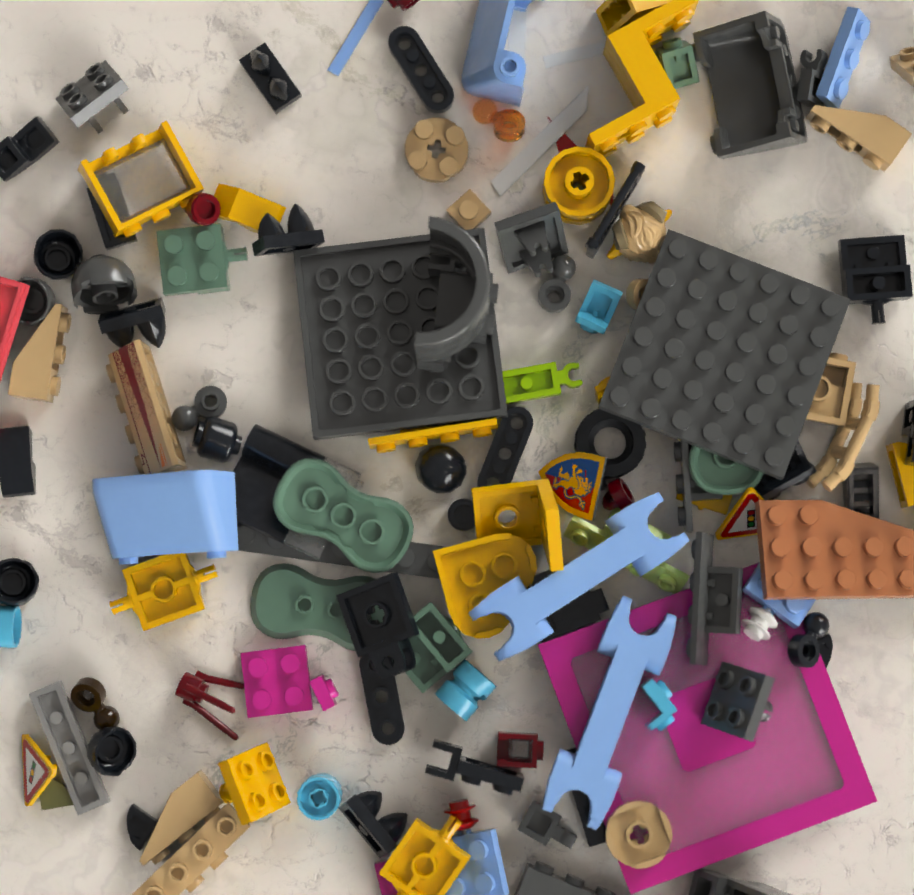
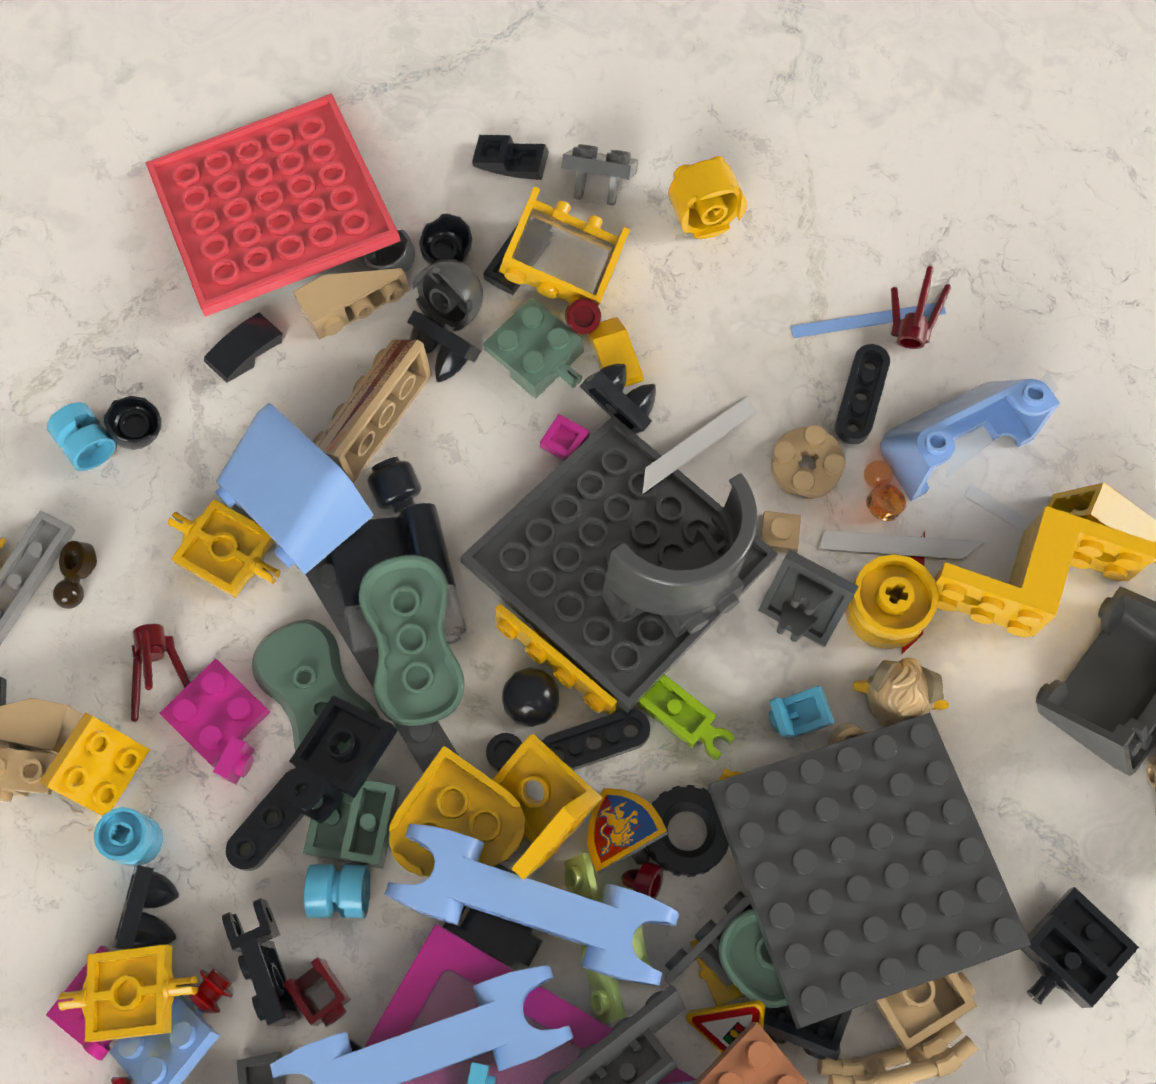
camera: 50 degrees right, 15 degrees down
(111, 750) = (37, 618): black hair -> none
(185, 43) = (706, 197): none -> yellow brick
(185, 417) = (393, 445): dark grey plate -> none
(270, 78) = (741, 287): black tile -> none
(280, 297) = (563, 437): none -> dark pink plate
(361, 210) = (697, 443): none -> white sticker
(564, 269) = (805, 653): dark grey plate -> none
(594, 242) = (920, 647): black window -> none
(678, 62) = (1081, 599): sand green bracket -> none

